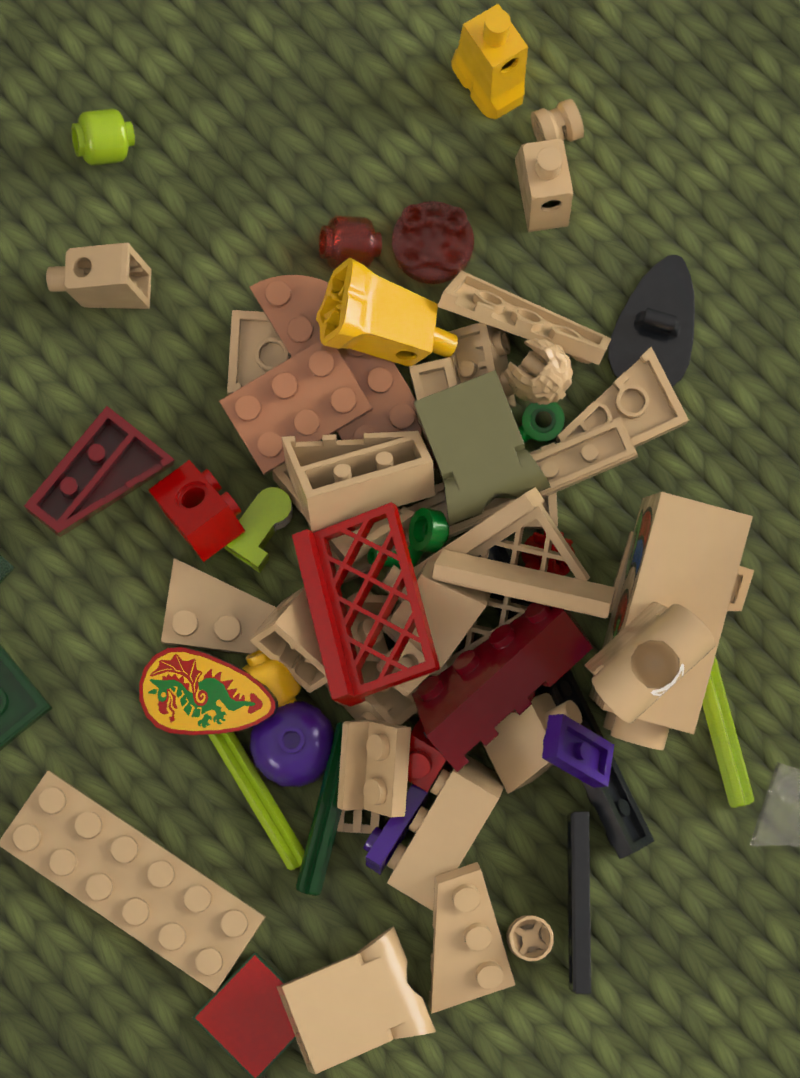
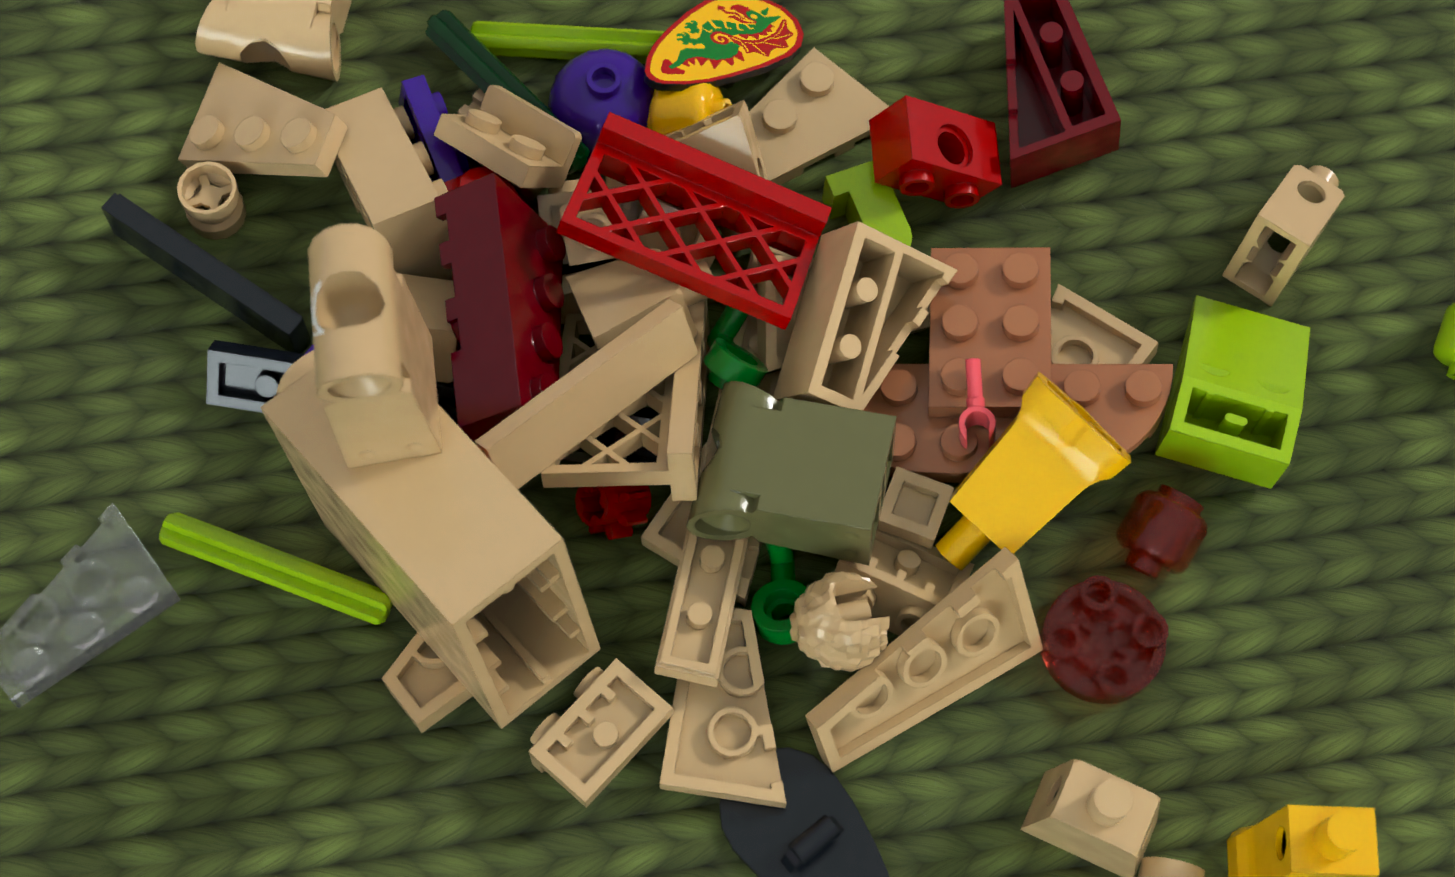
camera: 125 degrees right, 10 degrees down
(227, 250) = (1236, 393): none -> lime slope
(357, 377) = (976, 412): none -> coral hand
(687, 469) = (598, 731): none -> tan bracket

